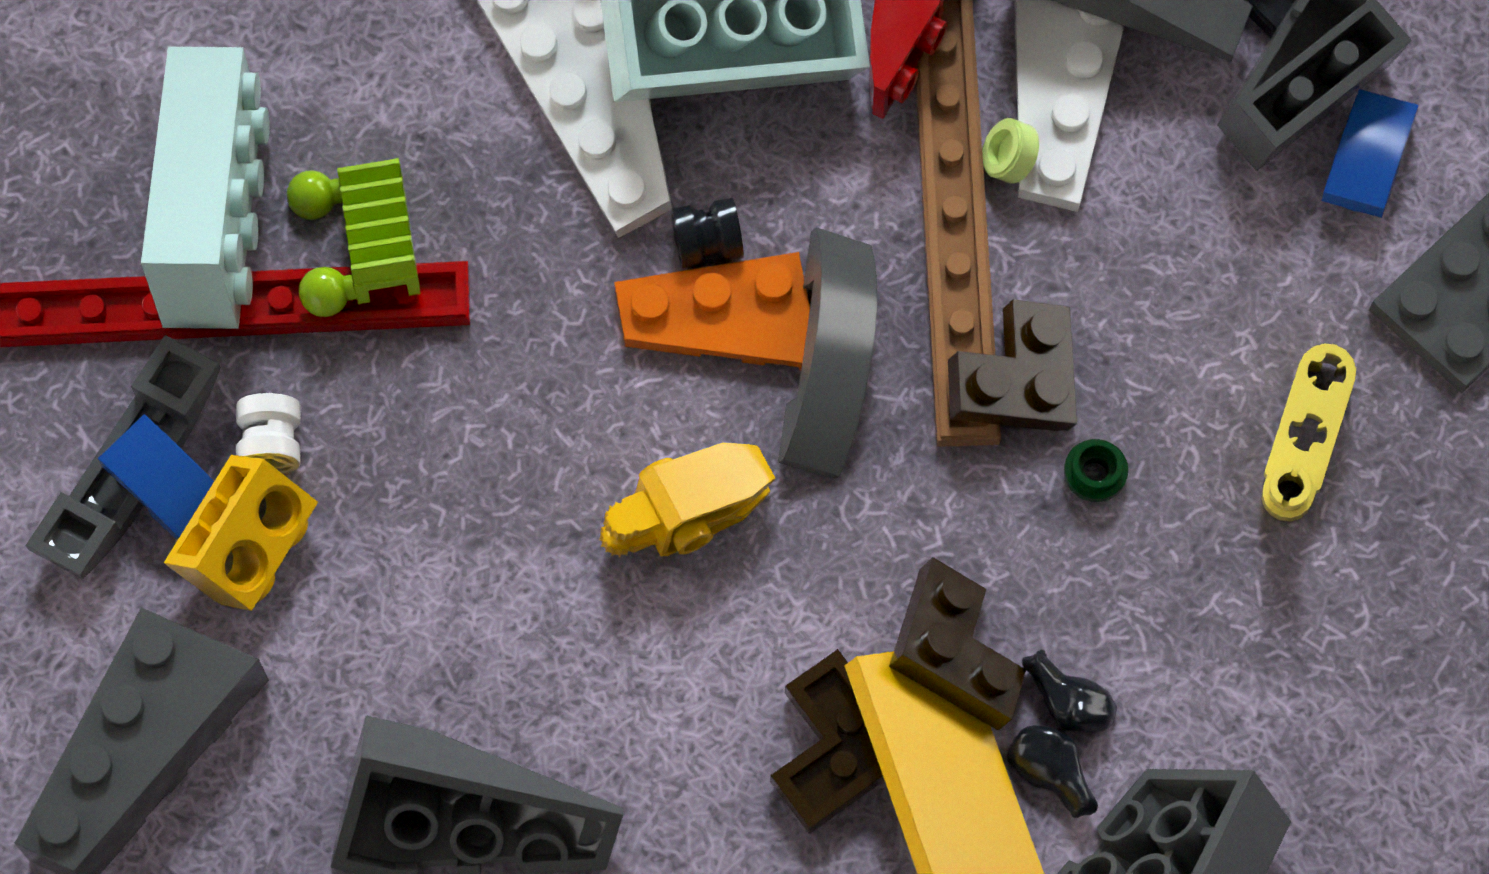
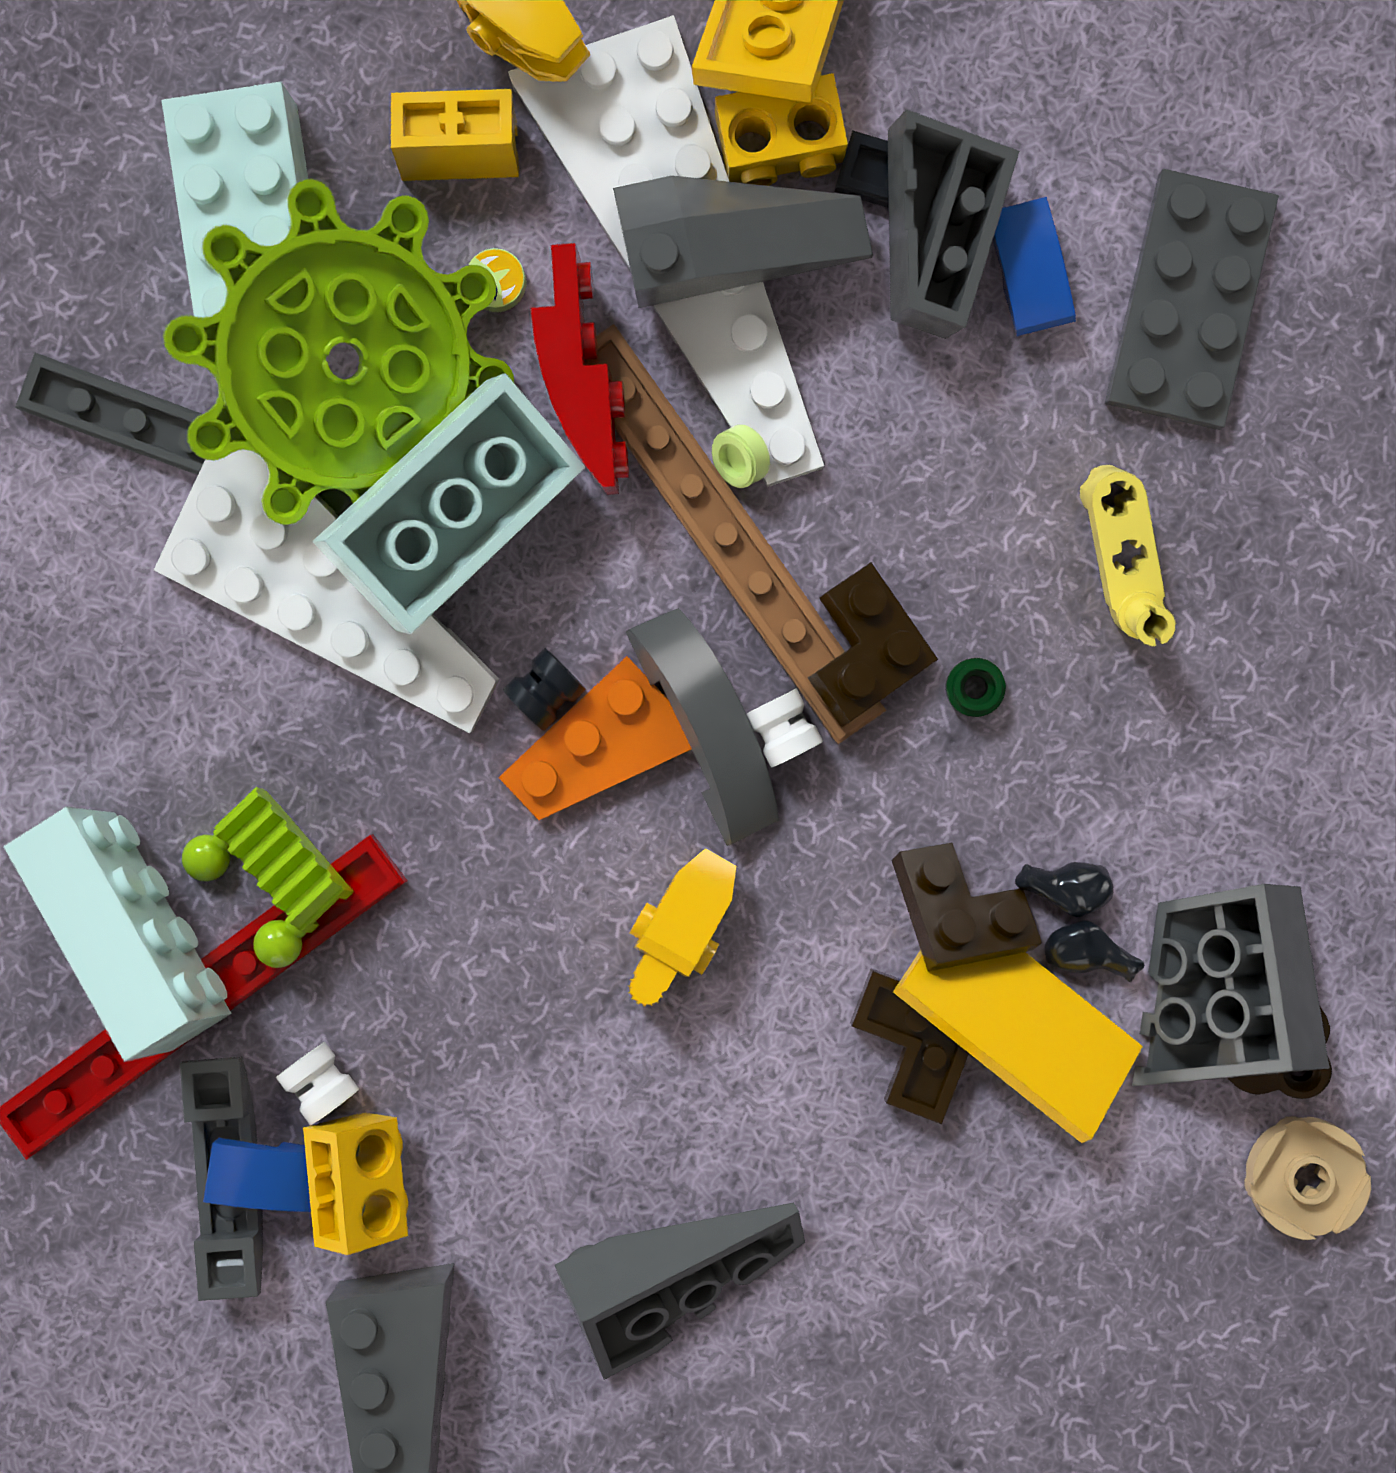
camera: 30 degrees left, 20 degrees up
(897, 393) = (784, 728): none -> white wheel

